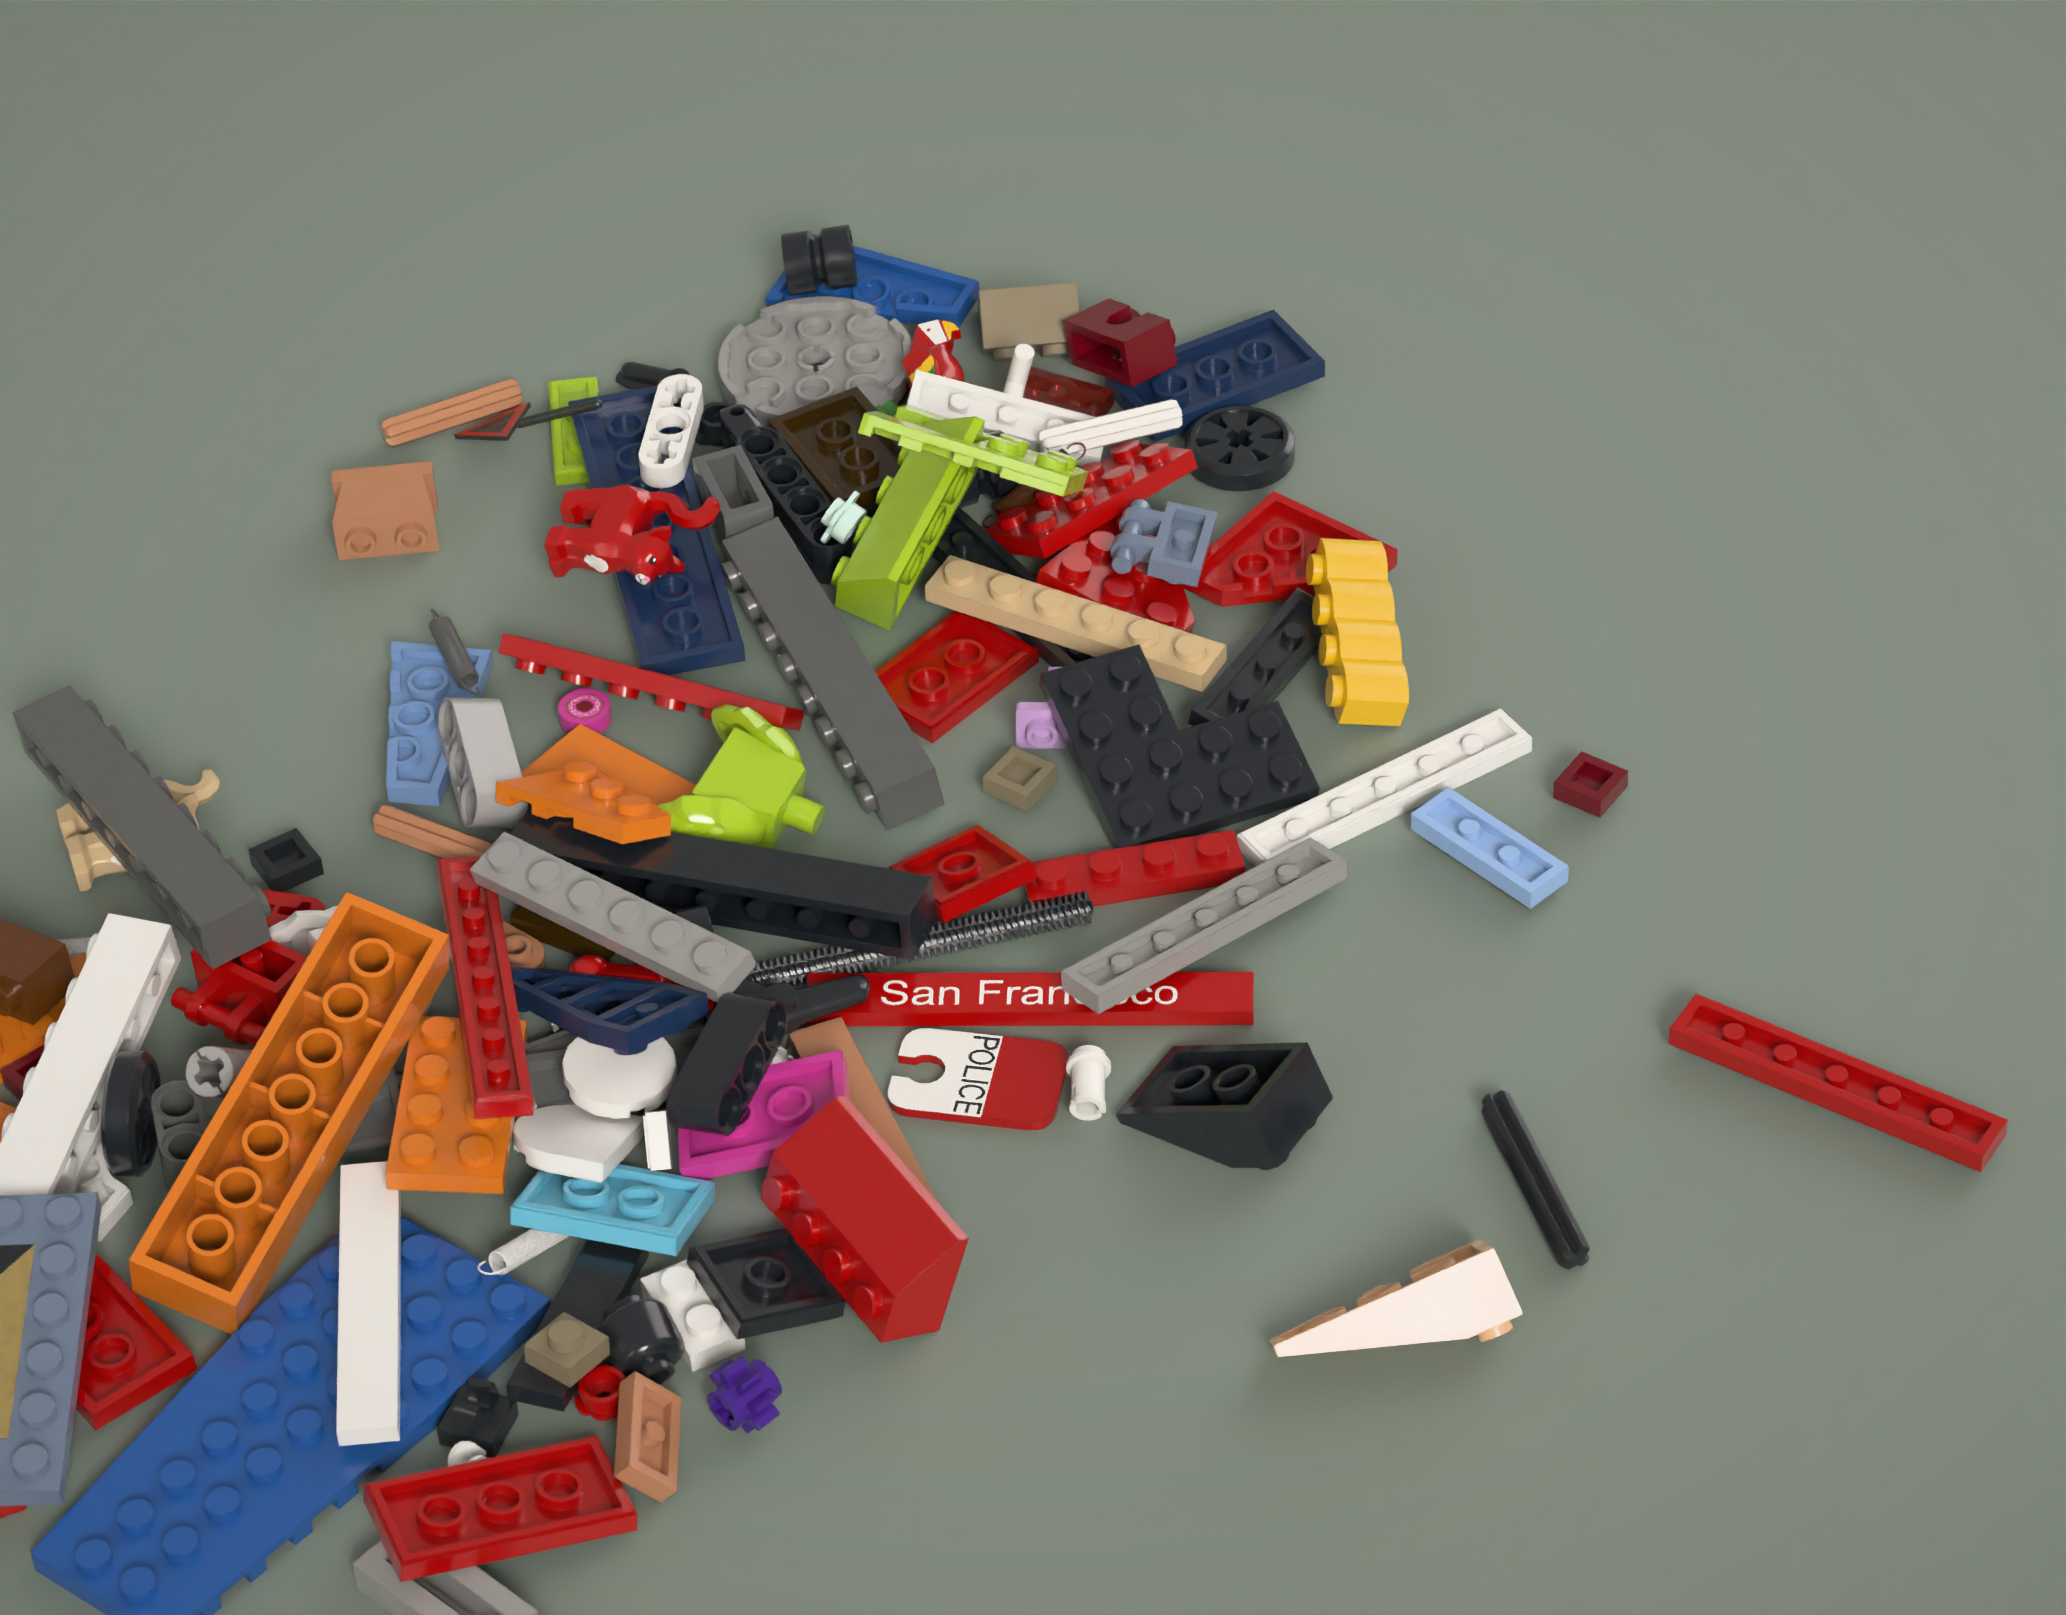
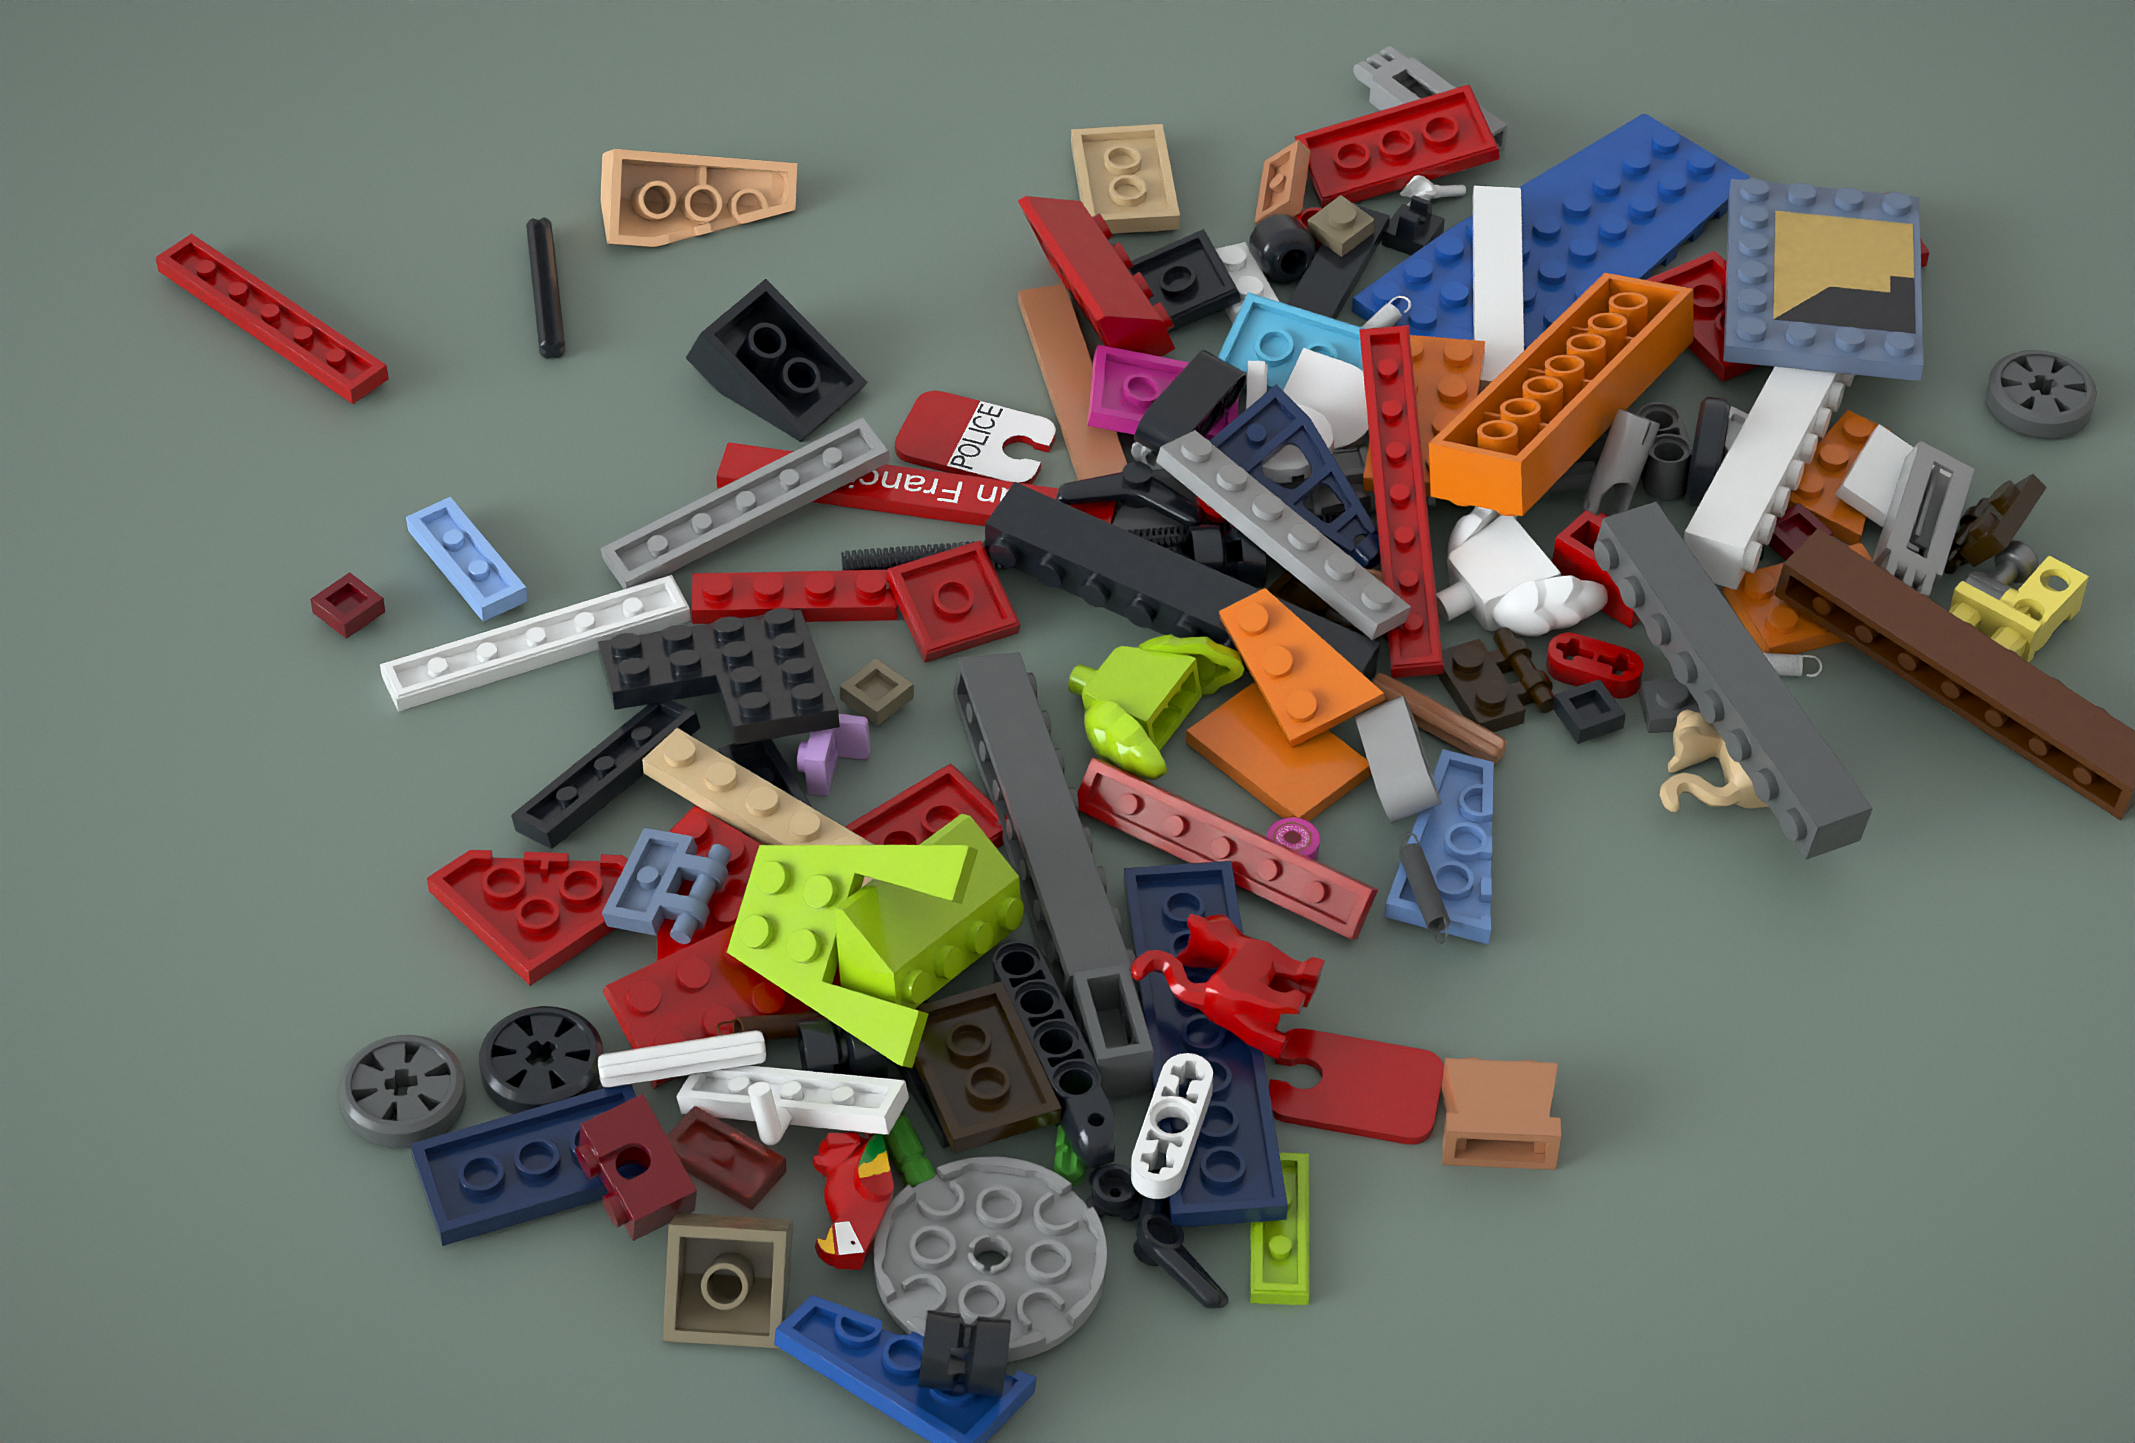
camera: 175 degrees left, 5 degrees up
(392, 876) = (1481, 690): none -> dark brown plate
(451, 412) = (1424, 1268): nougat axle -> none
(498, 538) = (1363, 1089): none -> red piece
(502, 426) = (1366, 1222): pearl dark grey piece -> none
(744, 1394) = (1206, 198): dark purple gear -> none
(842, 519) = (1000, 935): light aqua plate -> none
(855, 1426) = (1126, 177): none -> tan plate
(1088, 1070) = (883, 409): white pin -> none
(1352, 412) = (372, 1081): none -> dark grey wheel
(1358, 632) = (505, 766): yellow brick -> none

